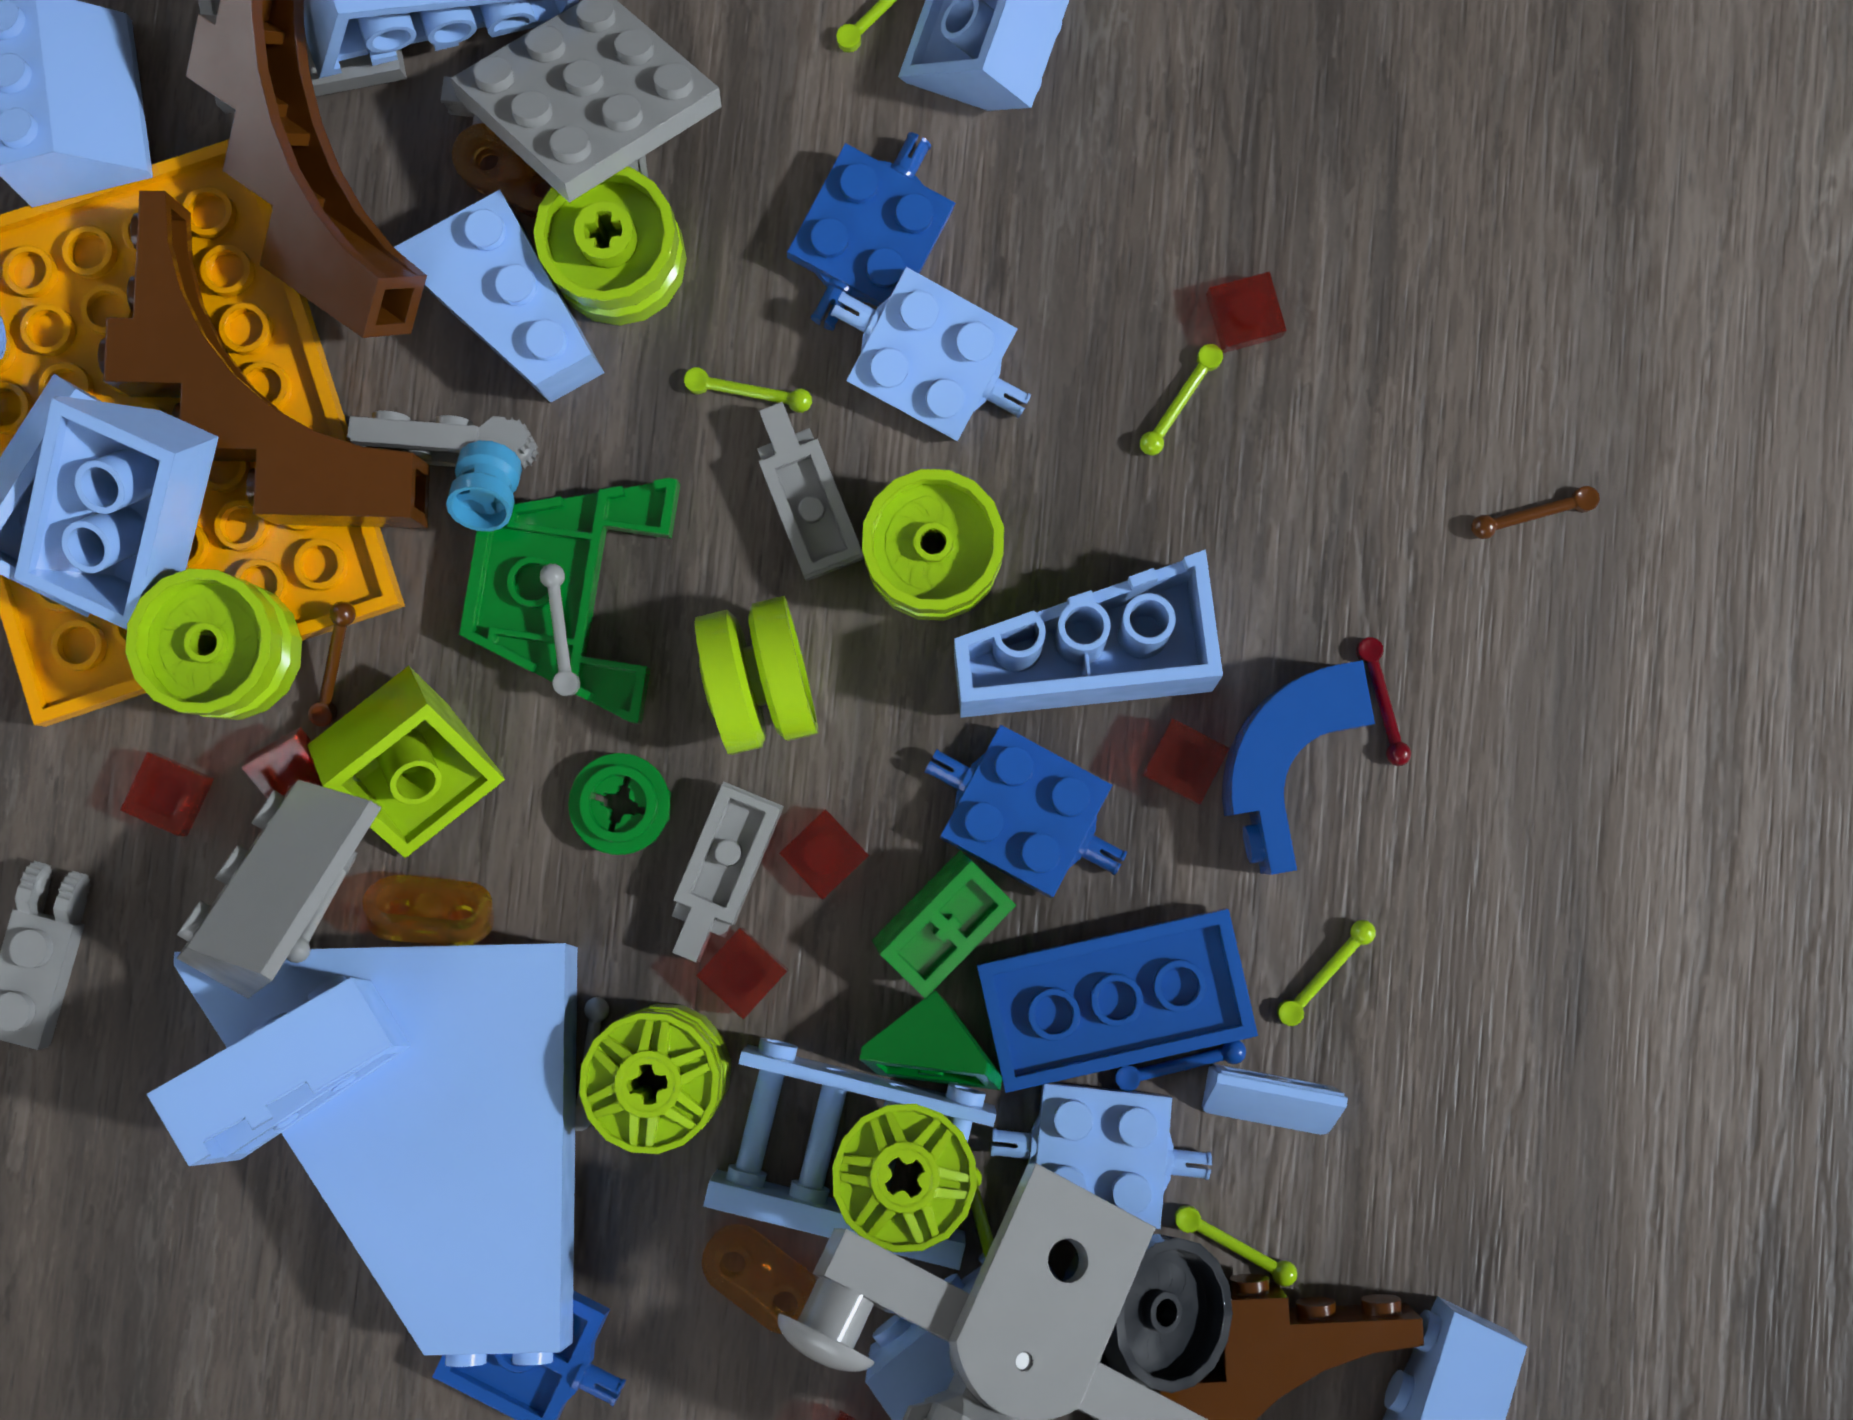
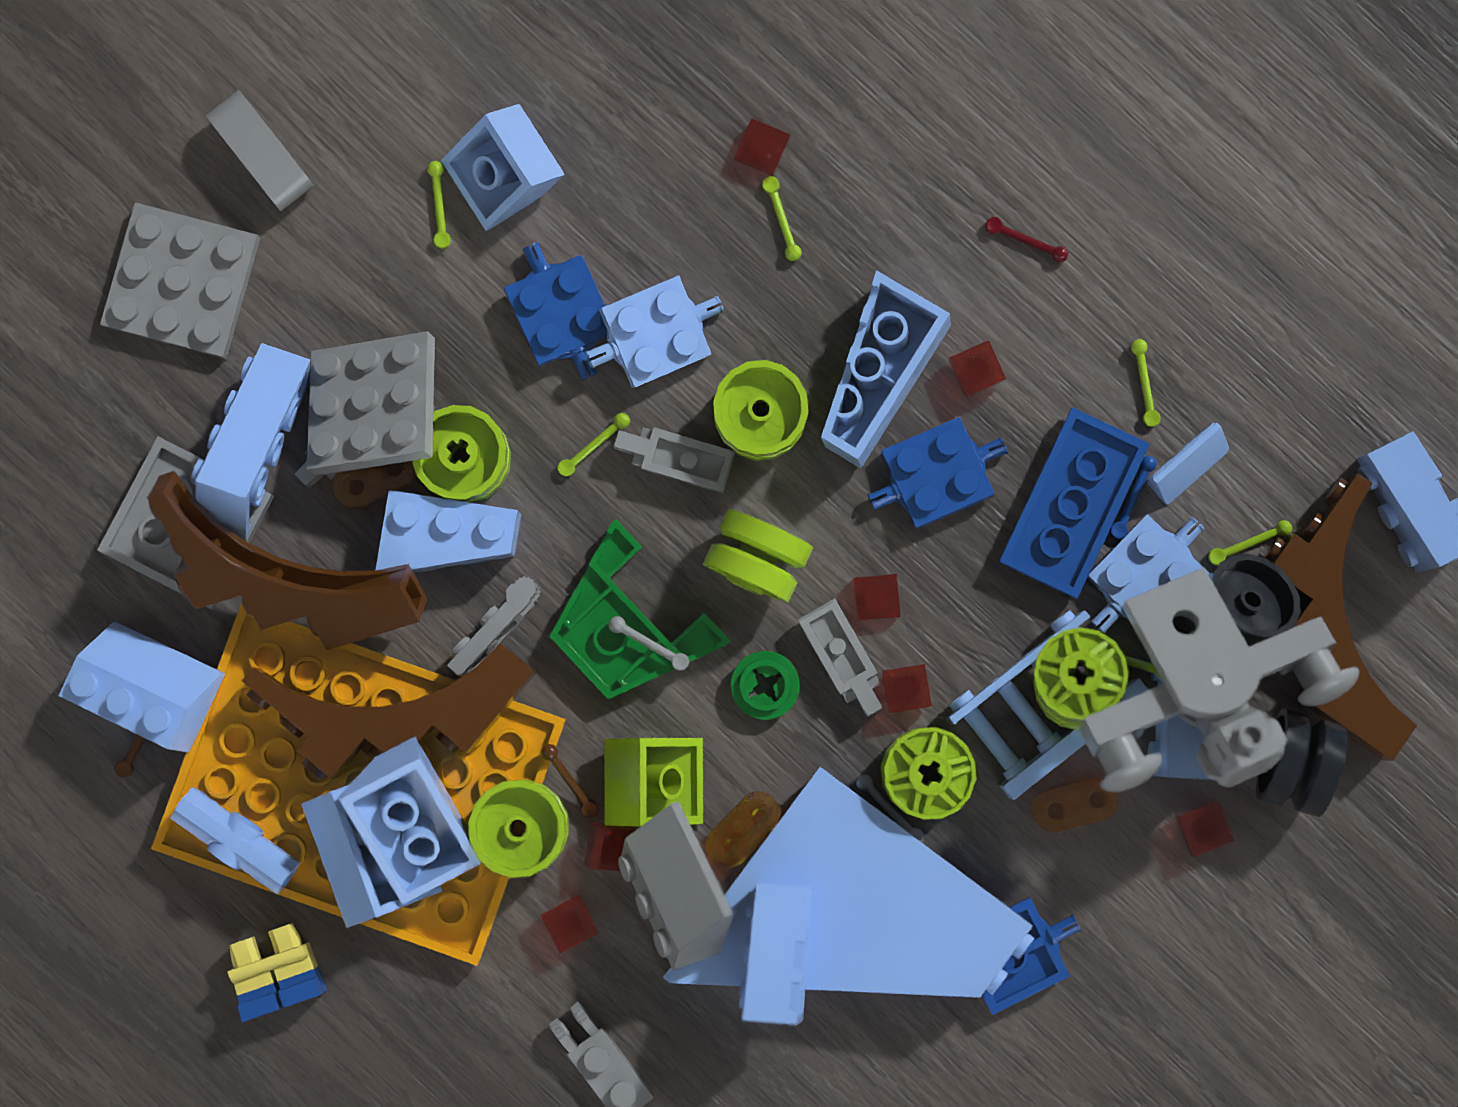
camera: 55 degrees left, 0 degrees up
(484, 486) = (536, 618): dark azure wheel -> none
(931, 1047) = (1023, 618): green slope -> none
(942, 924) = (963, 561): green hinge -> none
(1269, 742) = (1001, 313): blue arch -> none
(1582, 500) = (1002, 51): reddish brown hinge -> none

